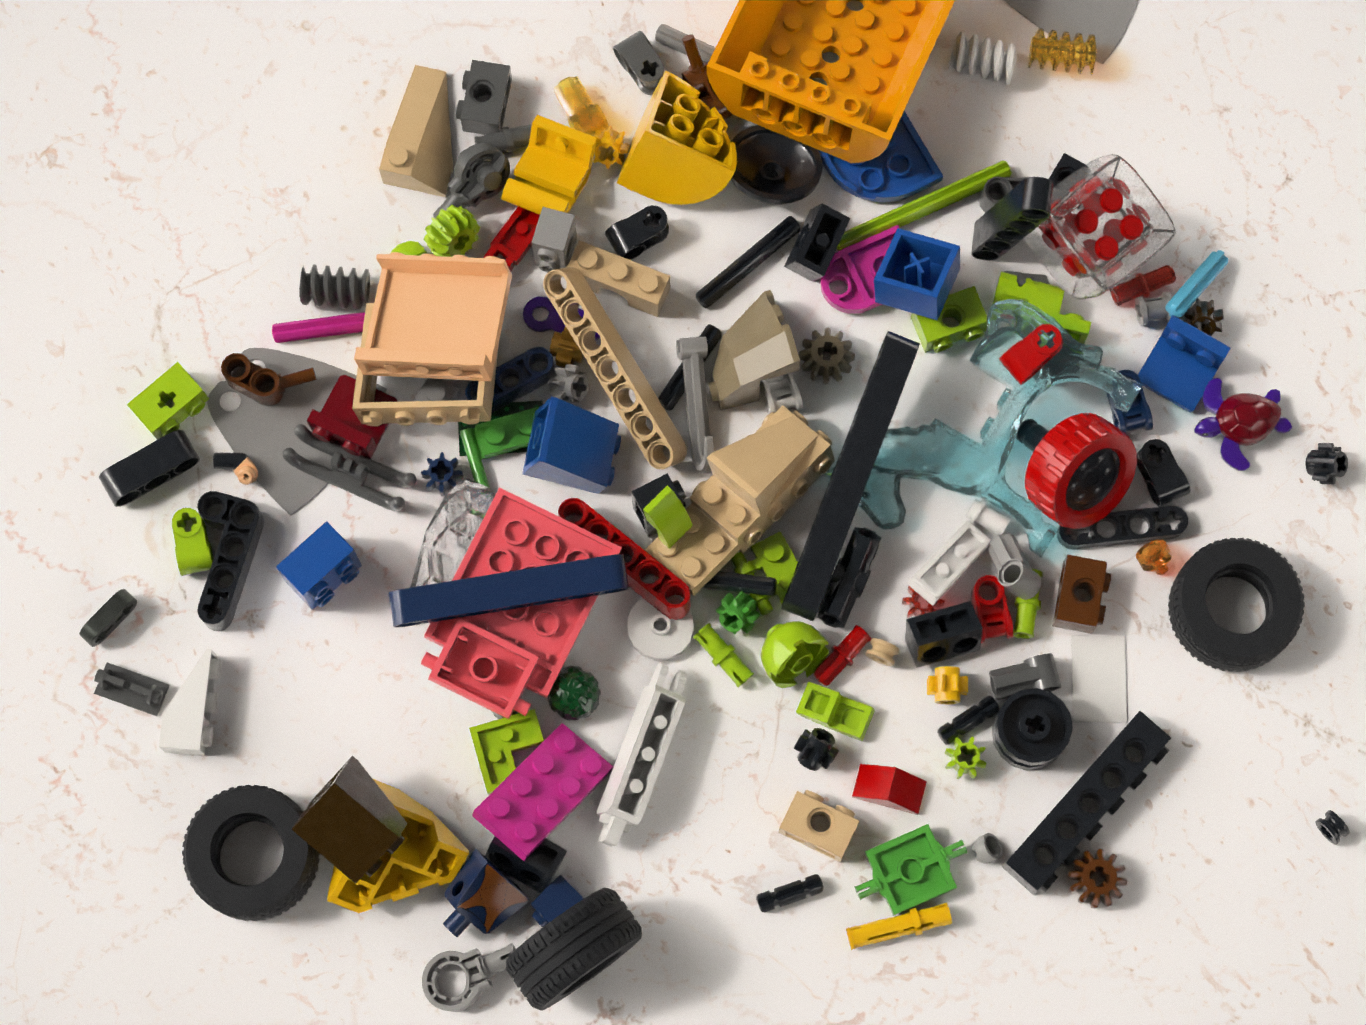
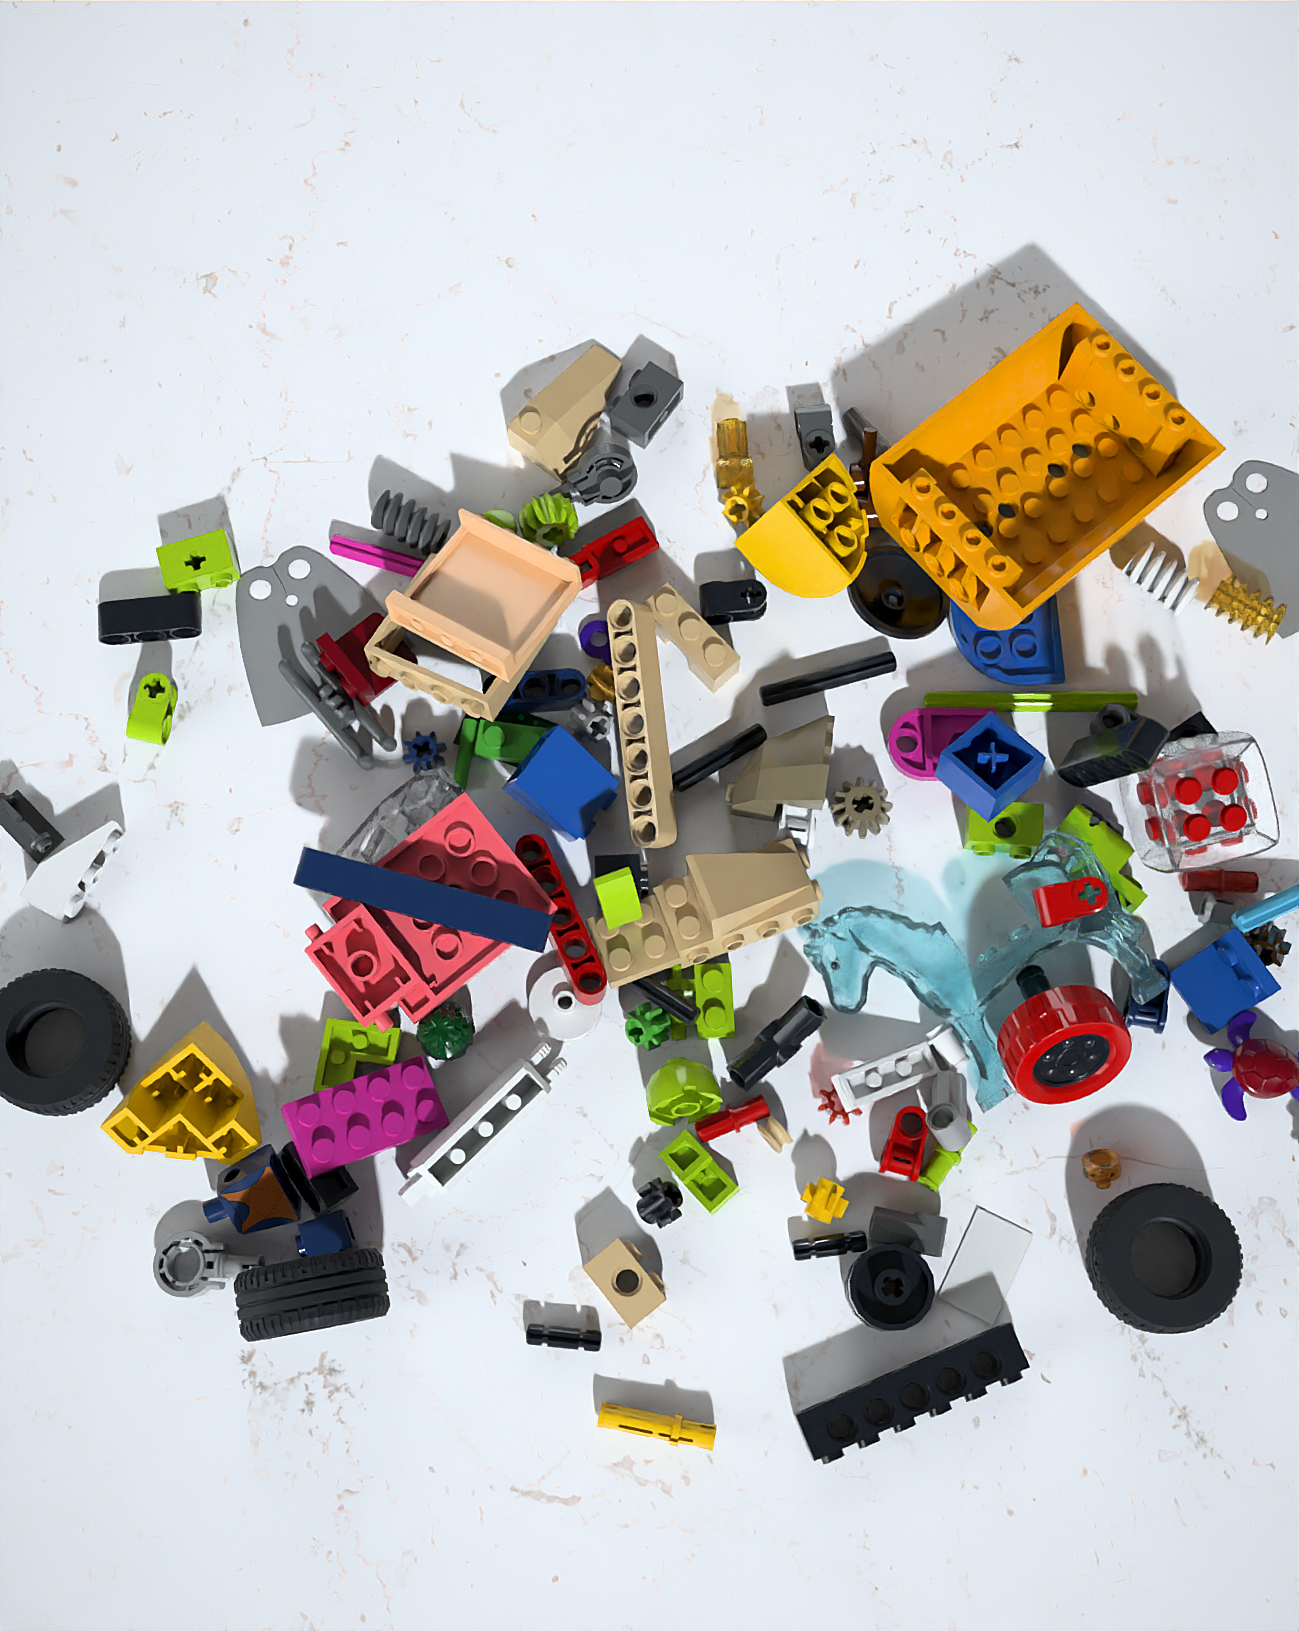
camera: 25 degrees right, 0 degrees up
(108, 617) = (38, 746): pearl dark grey beam -> none
(223, 563) = (172, 741): black beam -> none
(240, 465) = (237, 653): arm -> none
(255, 376) = (292, 576): reddish brown beam -> none
(320, 566) = (259, 789): blue brick -> none
(351, 822) = (156, 1060): dark brown slope -> none
(437, 391) = (459, 671): light grey plate -> none
(507, 138) = (653, 455): dark grey pin -> none
(551, 168) = (675, 502): yellow piece -> none
(554, 239) = (643, 570): light grey brick -> none
(692, 352) = (726, 744): light grey piece -> none
(723, 655) = (613, 1062): lime pin -> none
(817, 242) = (905, 689): black brick -> none
(850, 476) = (824, 940): black beam -> none
(889, 788) = (716, 1278): red slope -> none
(910, 870) = (697, 1373): bright green plate -> none
(943, 634) = (844, 1146): black brick -> none
(963, 767) = (814, 1276): lime gear -> none
(987, 848) = (794, 1389): light grey hinge -> none
(1069, 610) = (986, 1181): reddish brown brick -> none
(1106, 871) = (897, 1472): reddish brown gear -> none
(1123, 531) = (1081, 1125): black beam -> none
(1163, 478) = (1149, 1089): black piece -> none
(1332, 827) = (1158, 1542): black bush -> none

